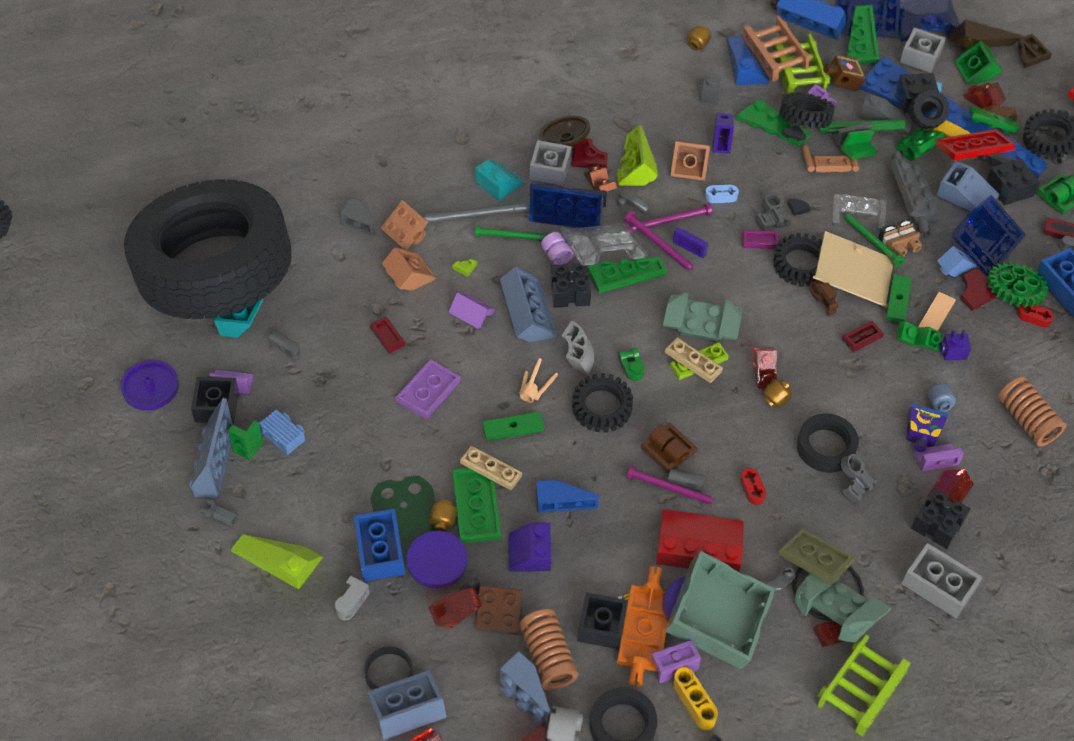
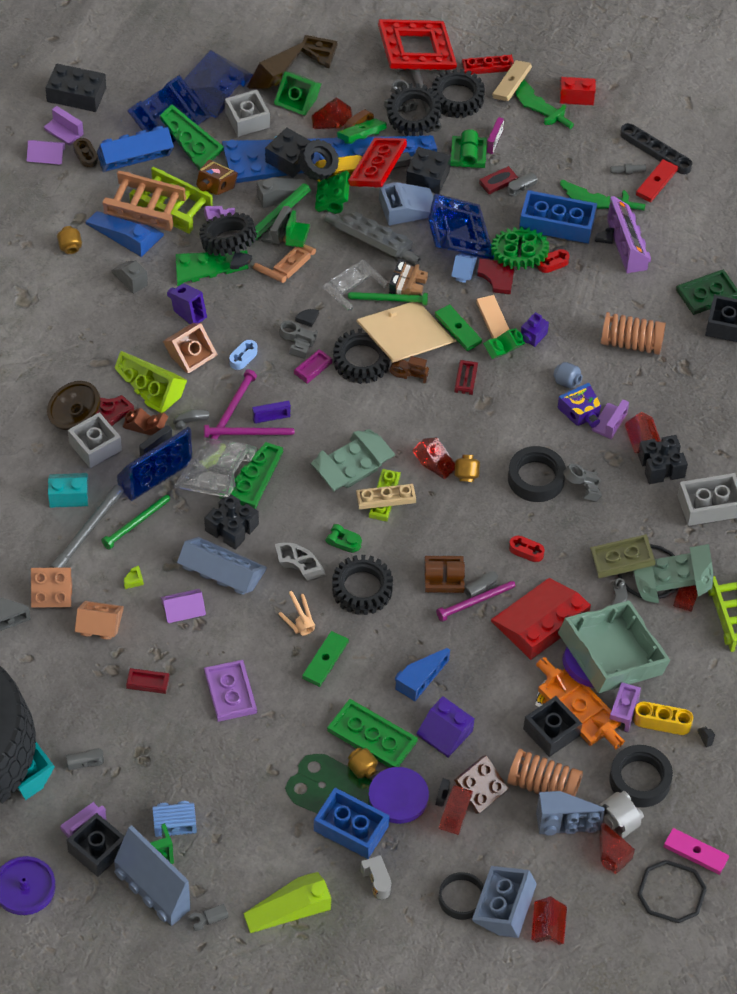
camera: 50 degrees left, 0 degrees up
(499, 472) = (343, 702): tan tile -> none
(556, 248) = (186, 502): lavender wheel -> none

